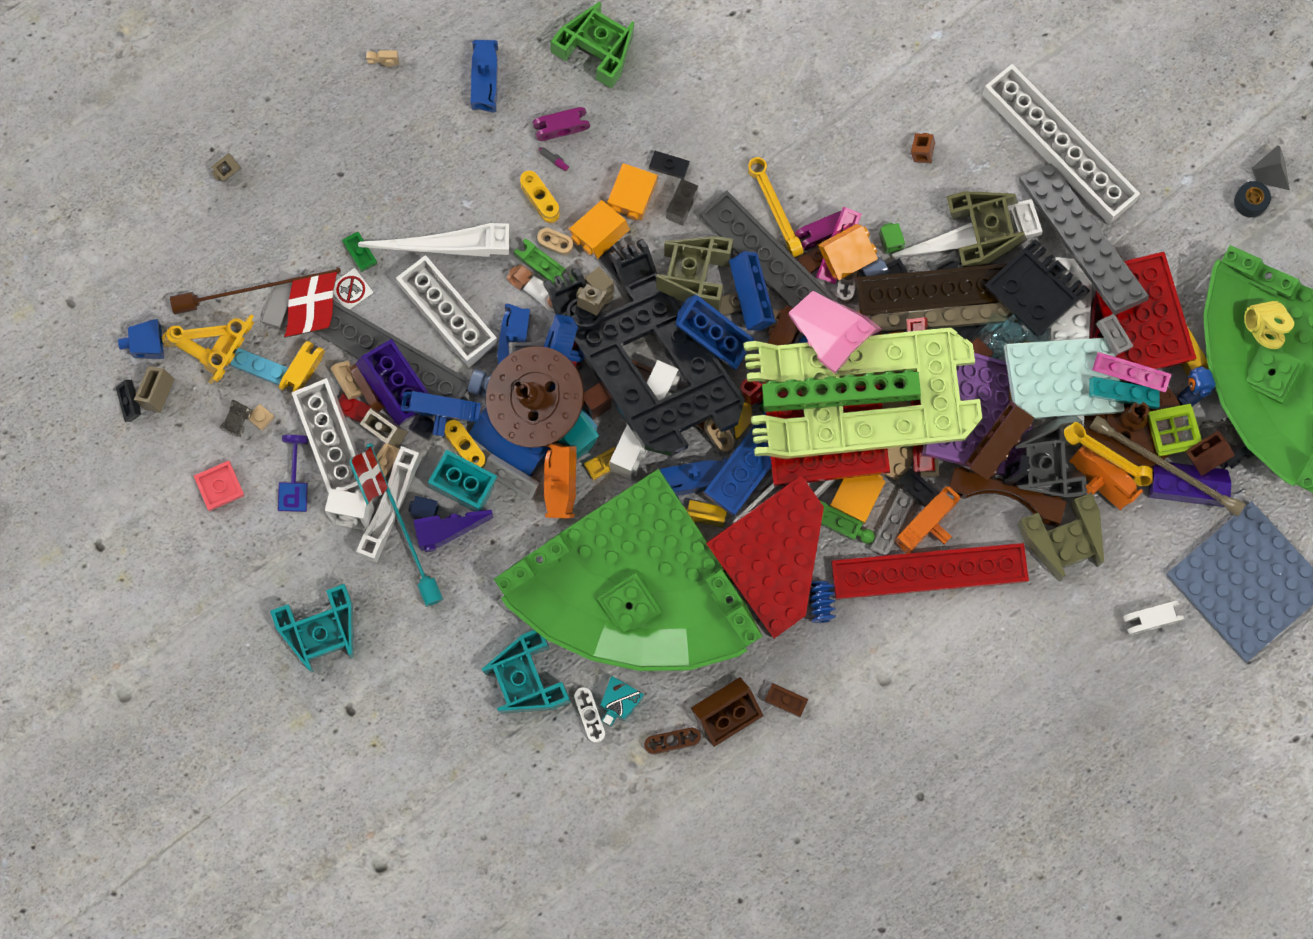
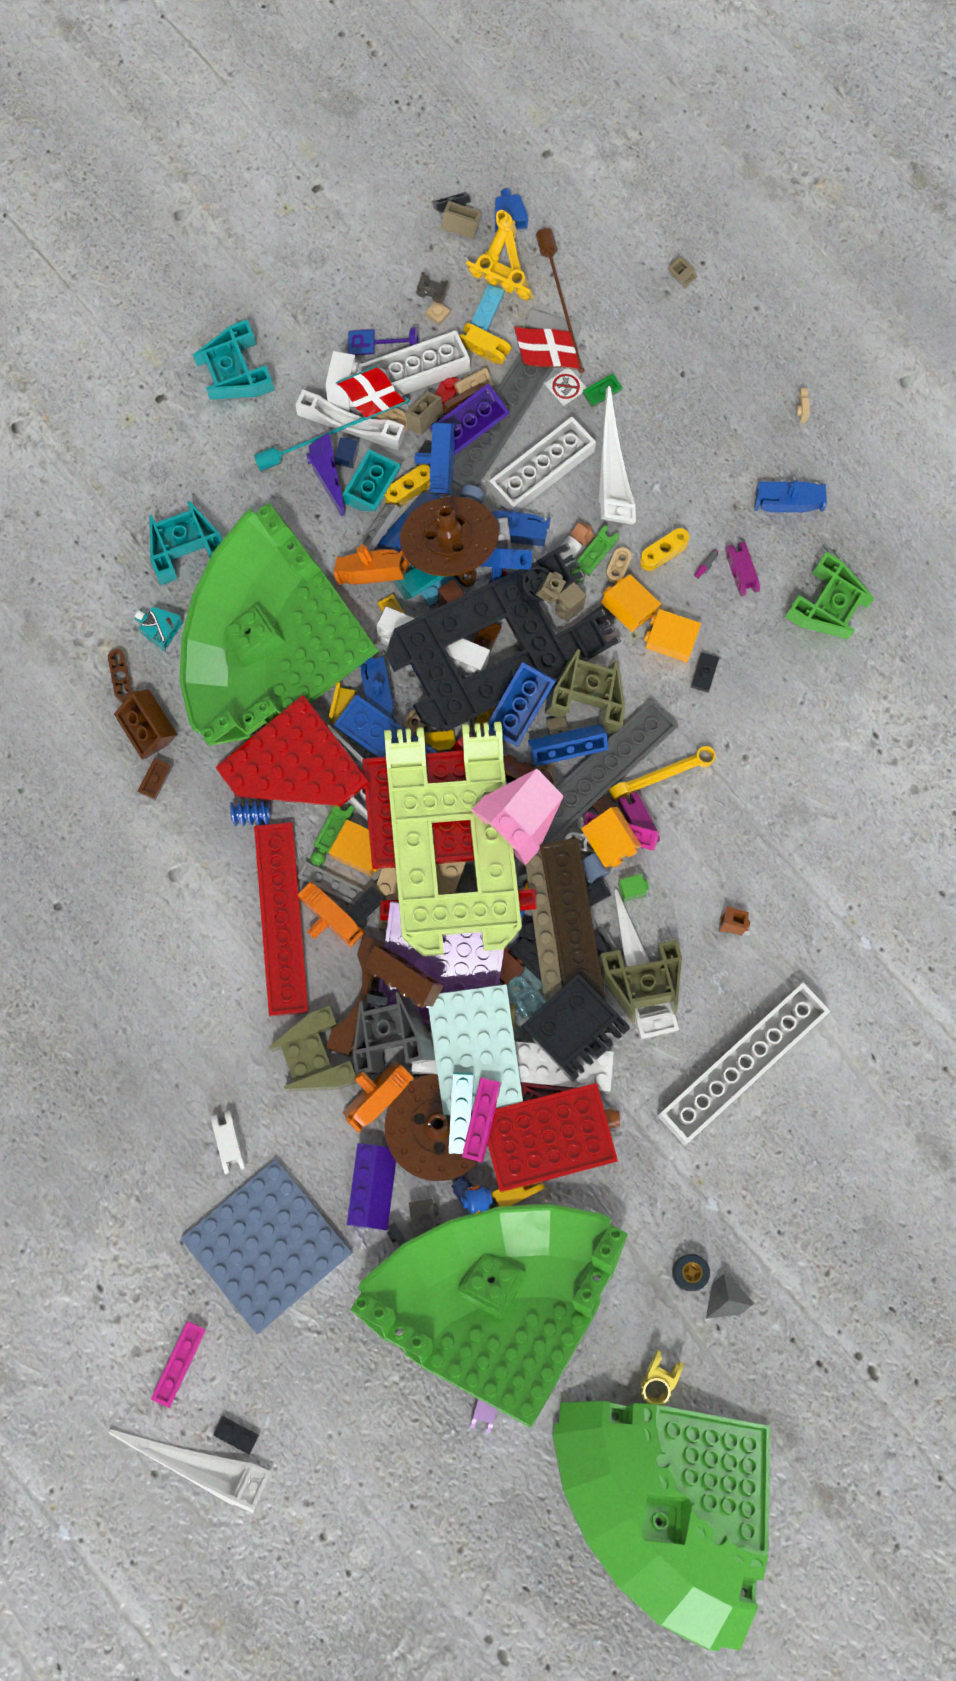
camera: 85 degrees right, 0 degrees up
(219, 485) = (371, 279): coral plate -> none
(579, 703) = (150, 594): white beam -> none
(682, 202) = (663, 682): clear smoke brick -> none
(833, 398) = (451, 882): bright green brick -> none
(1076, 434) = (377, 1132): yellow piece -> none
(1084, 239) = (631, 1078): dark grey plate -> none
(1114, 334) = (522, 1102): light grey plate -> none
(1174, 429) = (424, 1169): lime piece -> none
(1210, 453) = (398, 1204): copper brick -> none
(1233, 505) = (339, 1224): dark tan hose -> none
(1260, 321) = (545, 1278): light yellow piece -> none

